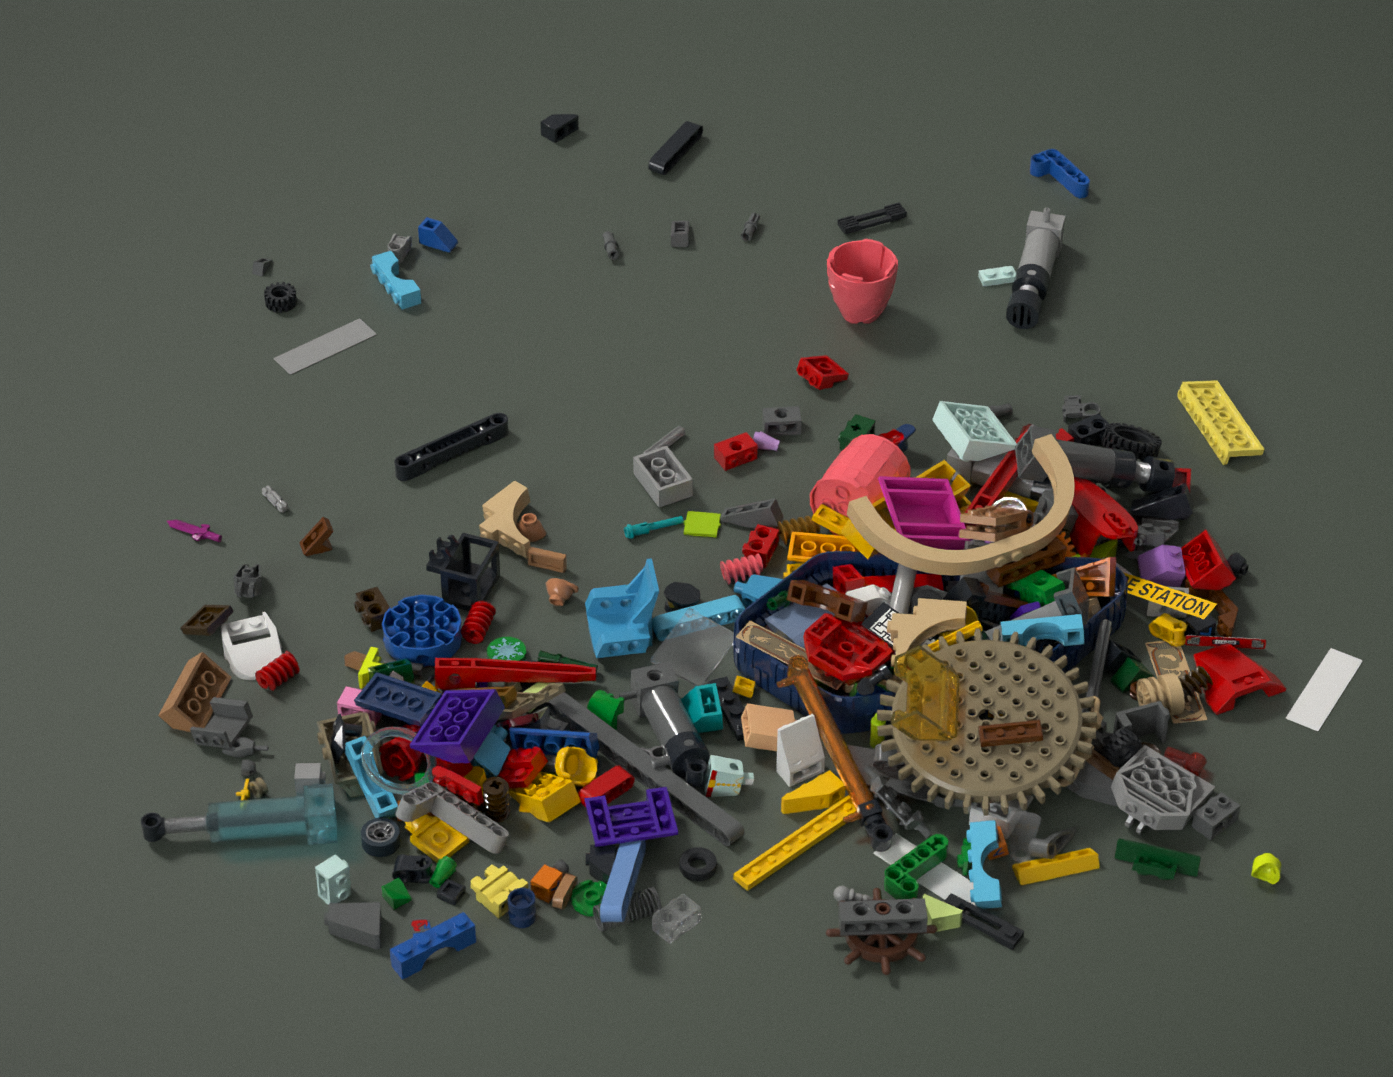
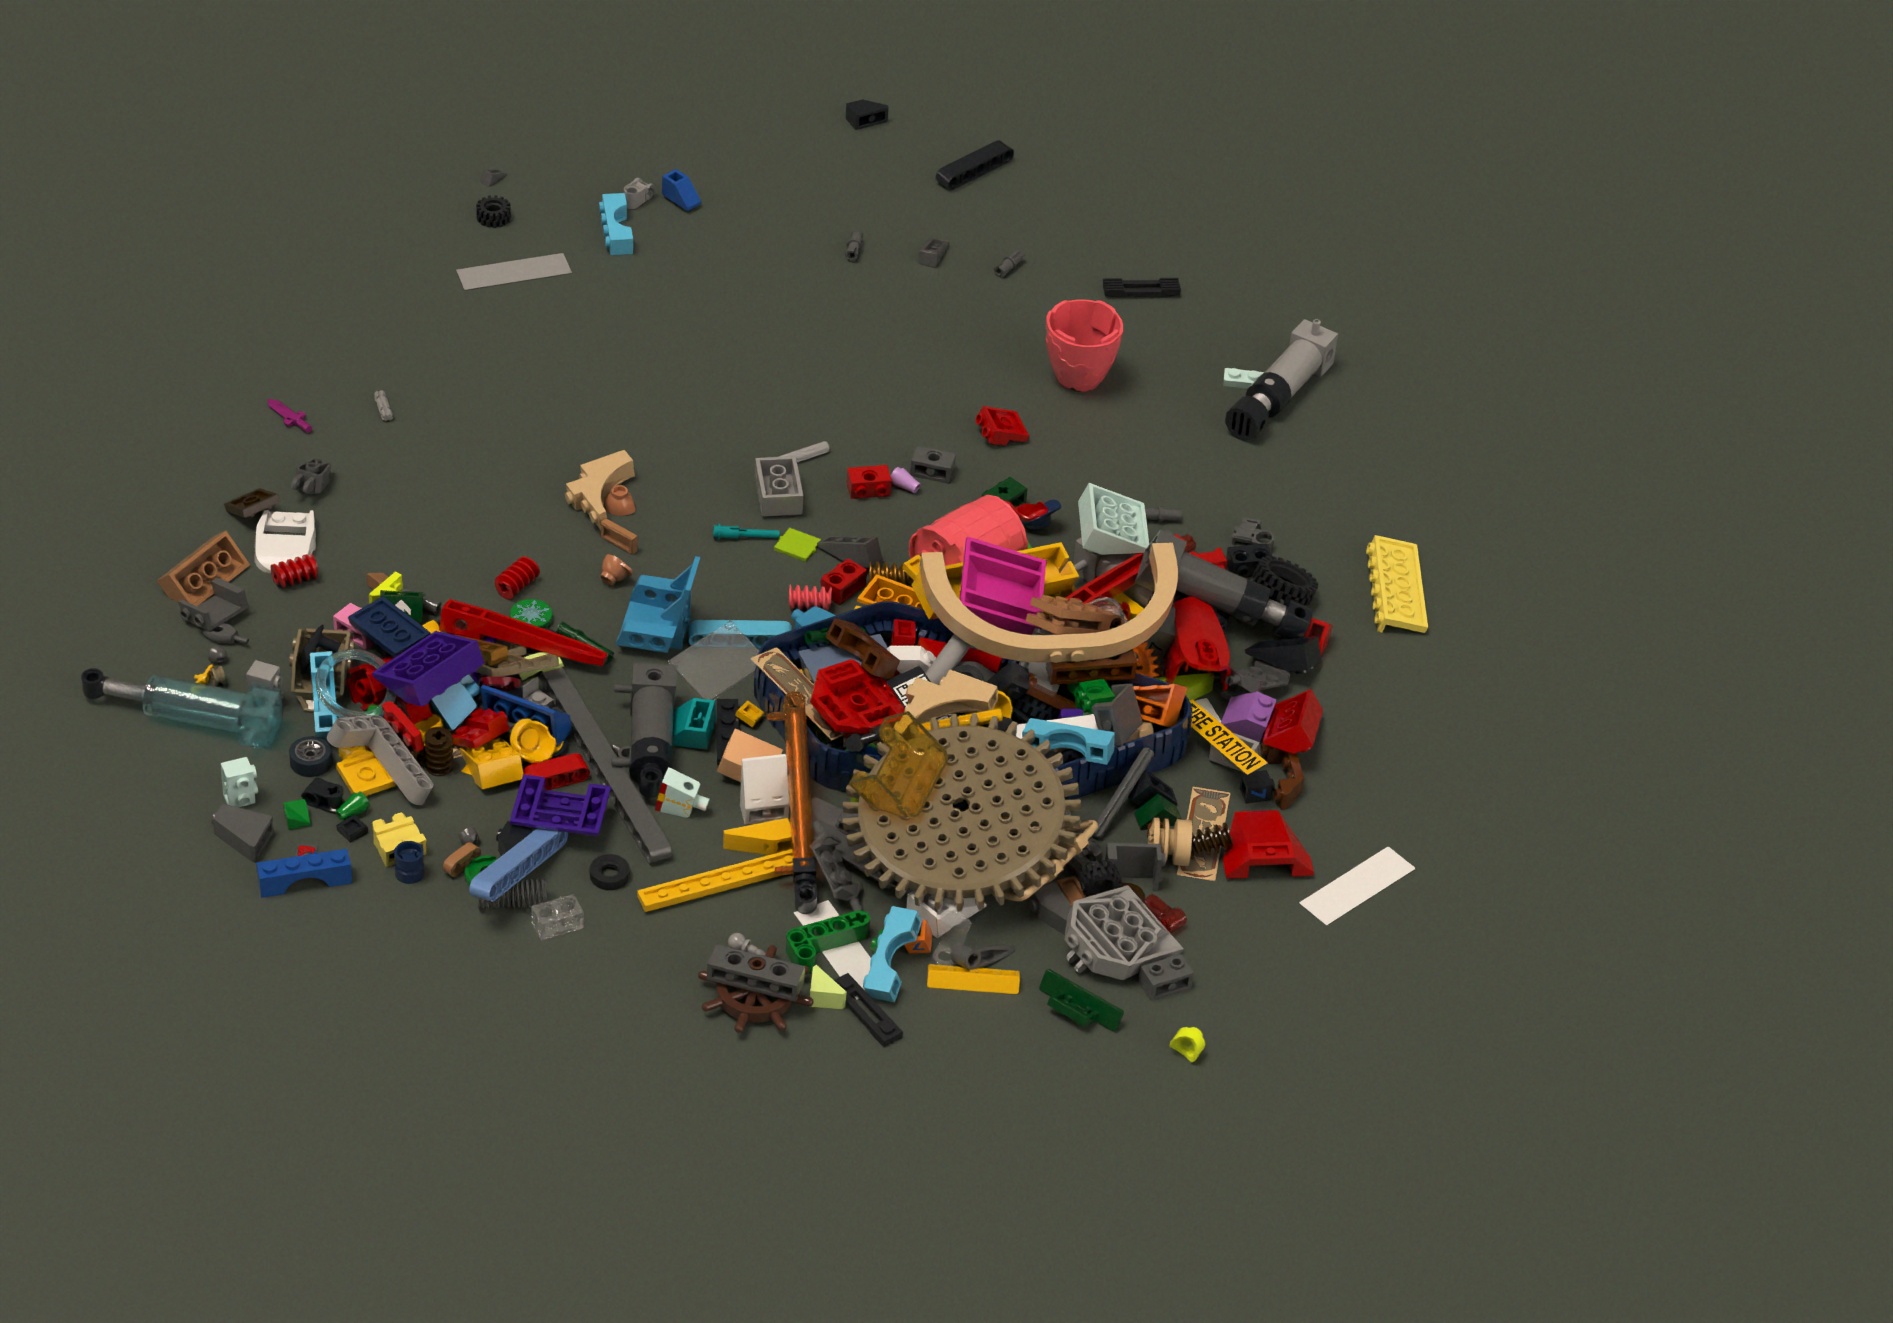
camera: 15 degrees right, 0 degrees up
(317, 538) = (403, 455): reddish brown slope -> none
(372, 607) = (421, 537): dark brown brick -> none
(409, 464) = (531, 407): black gear -> none
(422, 629) = (455, 569): blue brick -> none
(460, 579) = (520, 522): black piece -> none
(546, 883) = (445, 844): orange brick -> none
(606, 707) = (596, 695): green slope -> none
(680, 596) = (733, 607): black hat -> none
(1010, 733) = (973, 828): reddish brown tile -> none
(1064, 171) = (1369, 283): blue beam -> none
(1168, 629) = (1221, 779): yellow piece -> none
(1217, 641) = (1268, 805): sticker -> none
(1238, 564) = (1329, 735): black cone -> none

